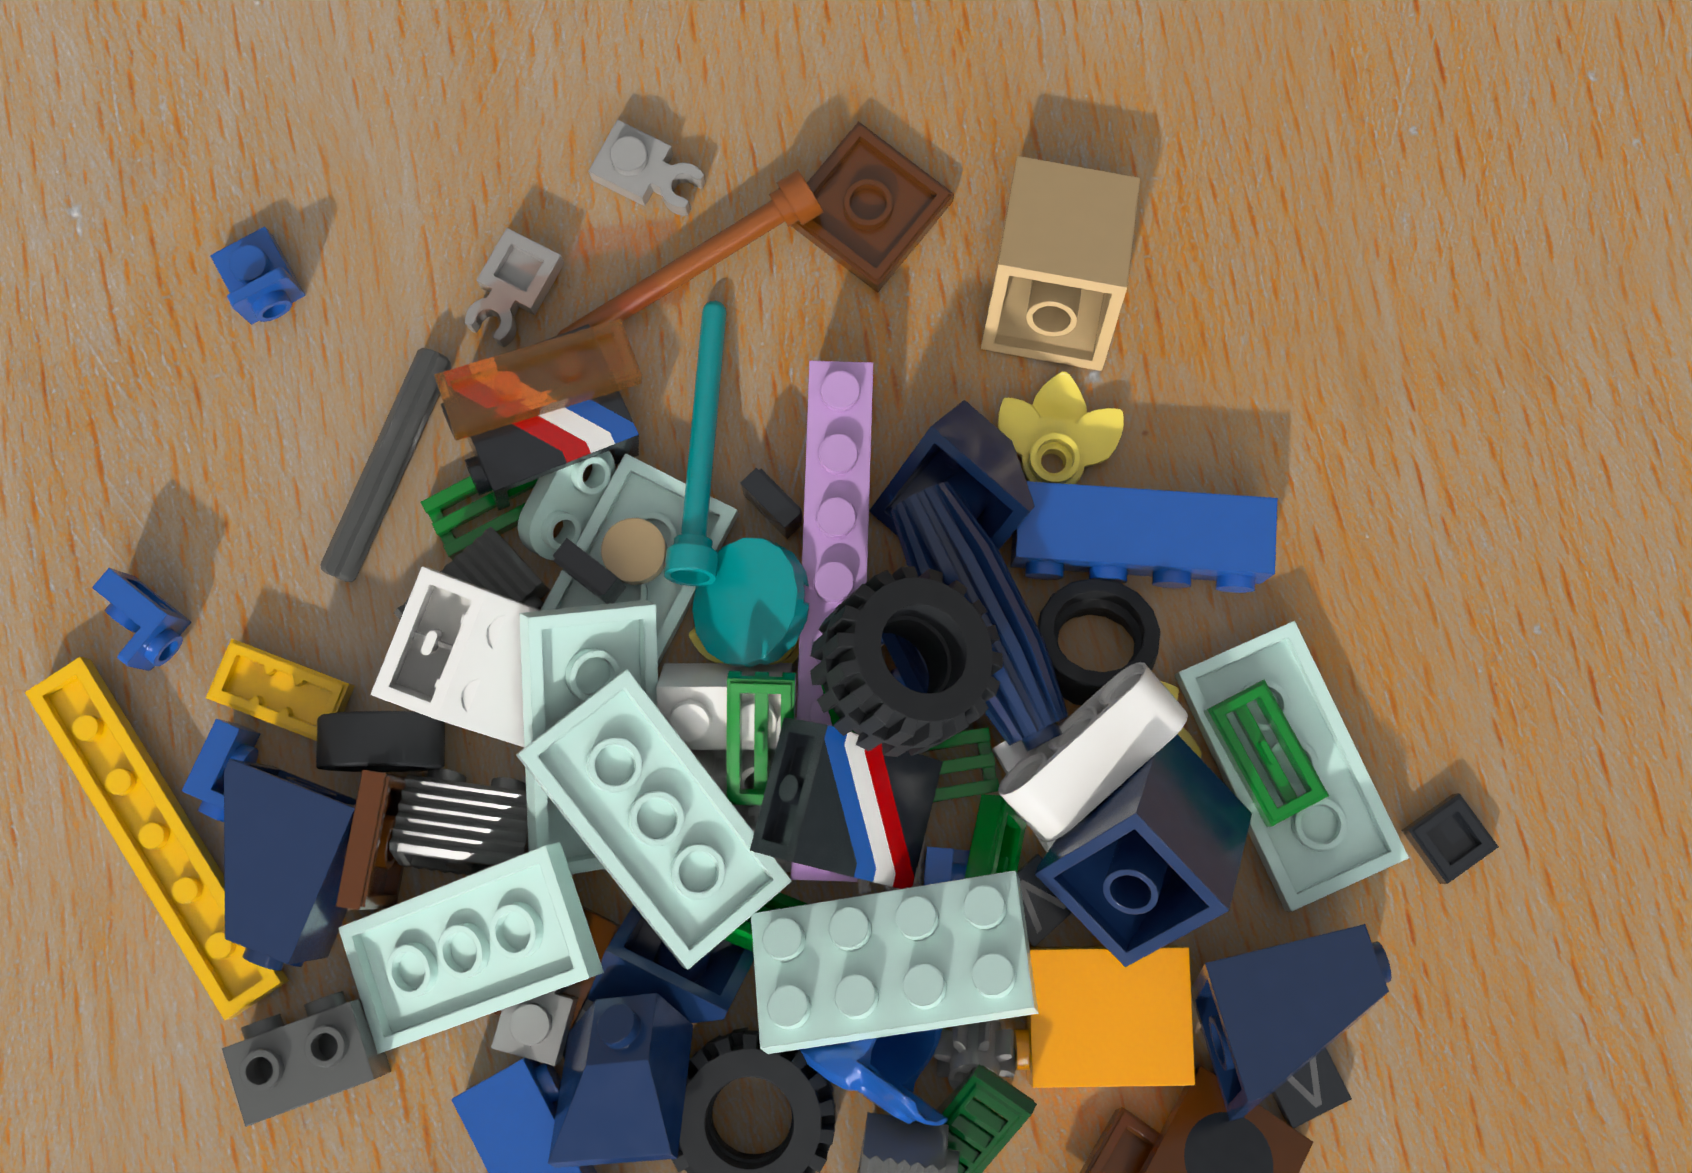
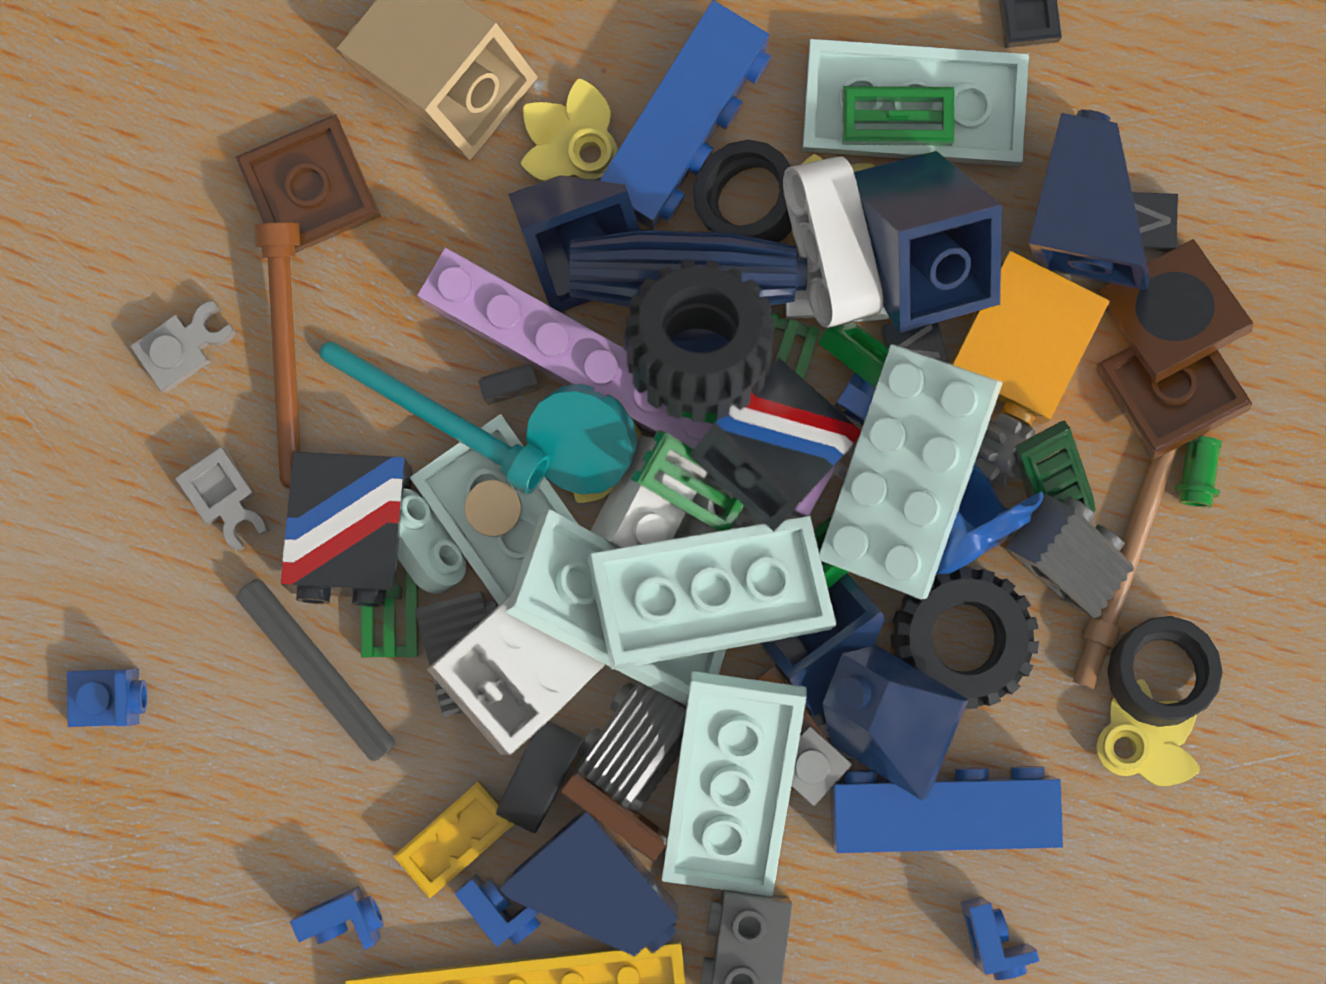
camera: 65 degrees left, 5 degrees up
(538, 379) = (320, 511): clear orange tile -> none
(588, 572) = (493, 550): black tile -> none

